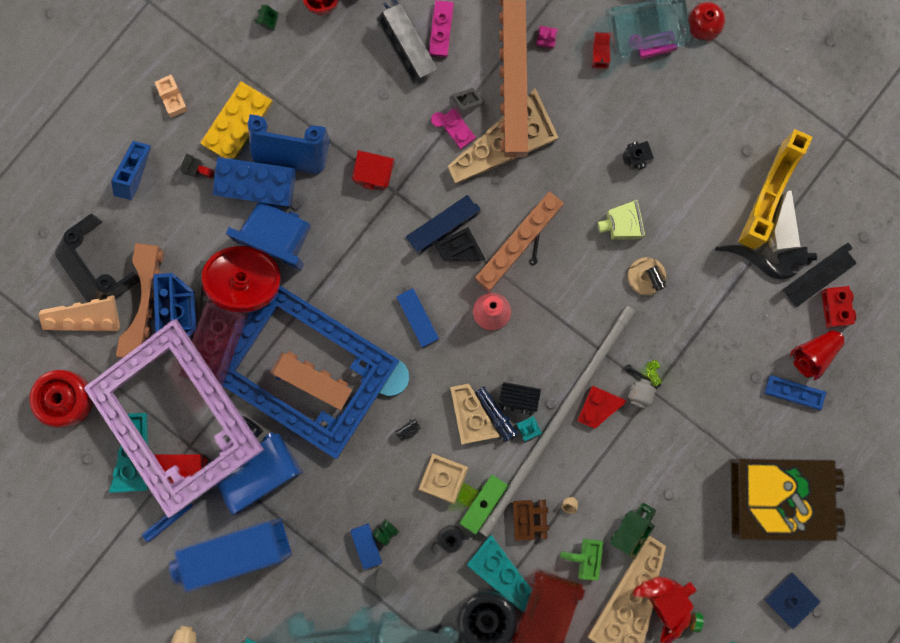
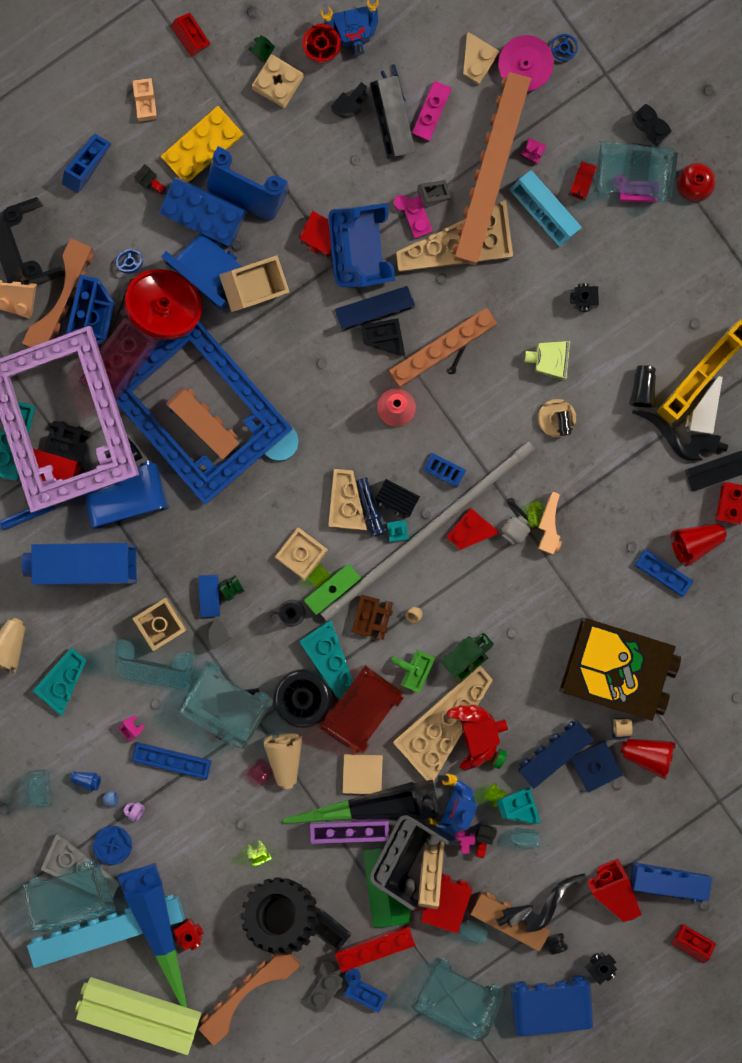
camera: 10 degrees right, 5 degrees up
(186, 443) = (66, 447): none -> black plate
(196, 25) = (190, 34): none -> red slope
(202, 254) = (132, 267): none -> blue piece
(296, 52) = (274, 69): none -> tan brick
(322, 233) = (254, 283): none -> tan piece
(326, 589) = (160, 624): none -> tan brick
(363, 46) = (348, 106): none -> black brick
(408, 429) = (281, 497): black pin -> none
(410, 169) = (358, 245): none -> blue windscreen
(417, 317) = (322, 392): blue tile -> none
(570, 366) = (455, 483): none -> blue slope
(574, 85) = (545, 208): none -> medium azure brick
(677, 392) = (550, 539): none -> light nougat slope
(720, 223) = (644, 387): none -> black plant
(749, 600) = (555, 754): none -> dark blue brick
(805, 555) = (621, 727): none -> tan leg
(842, 574) = (650, 755): none -> red cone

